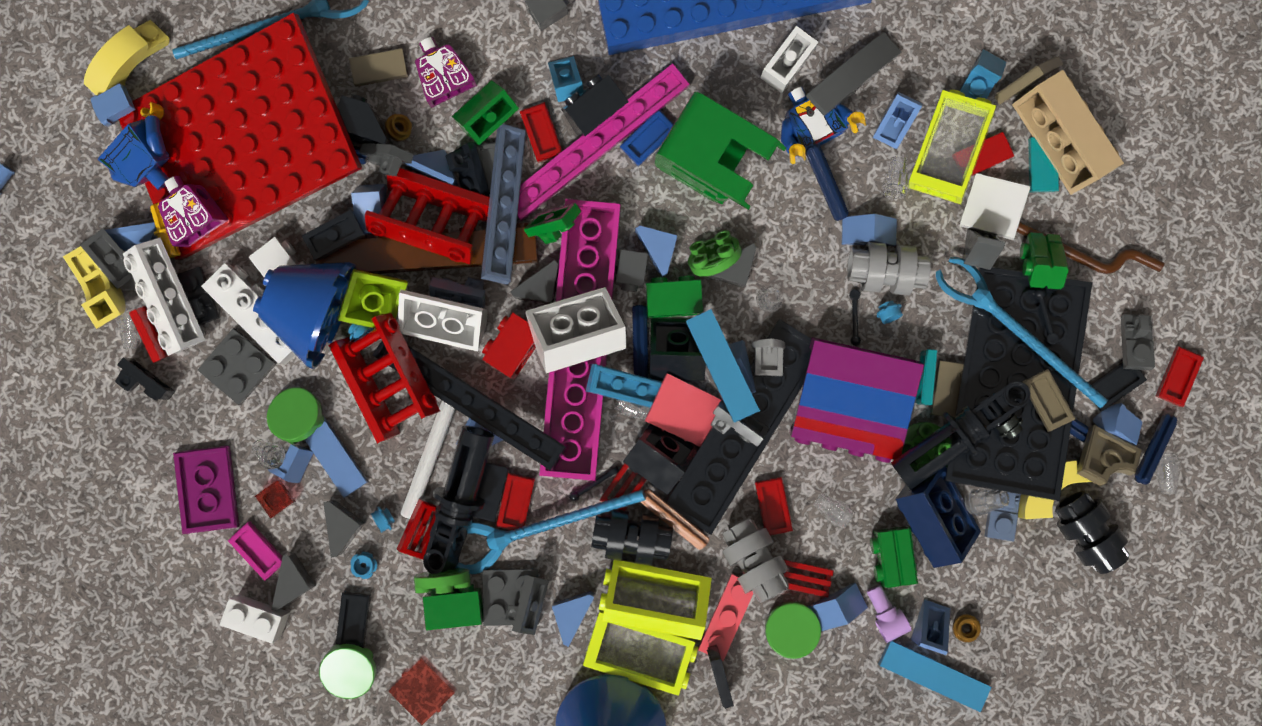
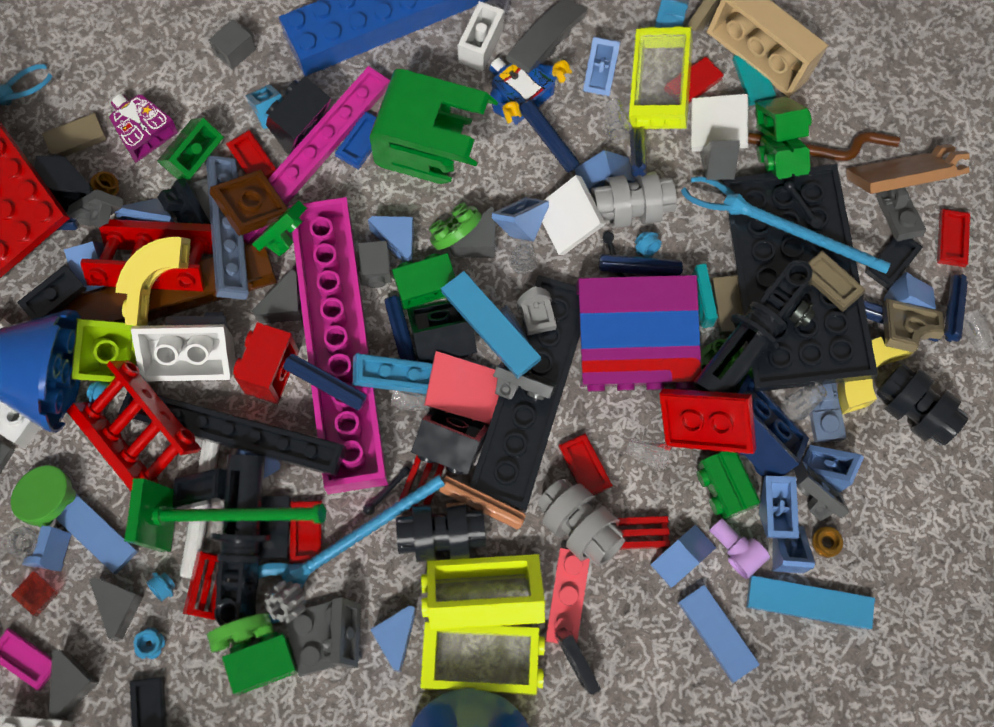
camera: 15 degrees left, 15 degrees down
(388, 461) = (153, 518): none -> green tile
(431, 445) = (199, 489): none -> black tile
(437, 233) = (143, 270): none -> light yellow arch
(485, 564) = (285, 601): none -> light grey gear
(529, 184) = (248, 202): none -> reddish brown tile
(564, 385) = (325, 381): none -> dark blue axle
(576, 329) = (328, 322): white slope -> none
(780, 258) = (522, 218): none -> medium blue slope
(792, 630) = (642, 591): bright green tile -> none
(824, 268) = (571, 215): none -> white tile
(847, 681) = (718, 634): none -> medium blue tile
(876, 332) = (640, 265): none -> dark blue axle
(893, 502) = (708, 420): none -> red tile
(906, 222) = (638, 152): none -> axle
(933, 592) = (779, 507): none -> medium blue slope
(975, 589) = (825, 498): none -> dark grey hinge
(992, 565) = (833, 465): none -> medium blue slope
(1055, 222) = (782, 119): none -> green brick
(1159, 304) = (909, 170): none -> medium nougat tile

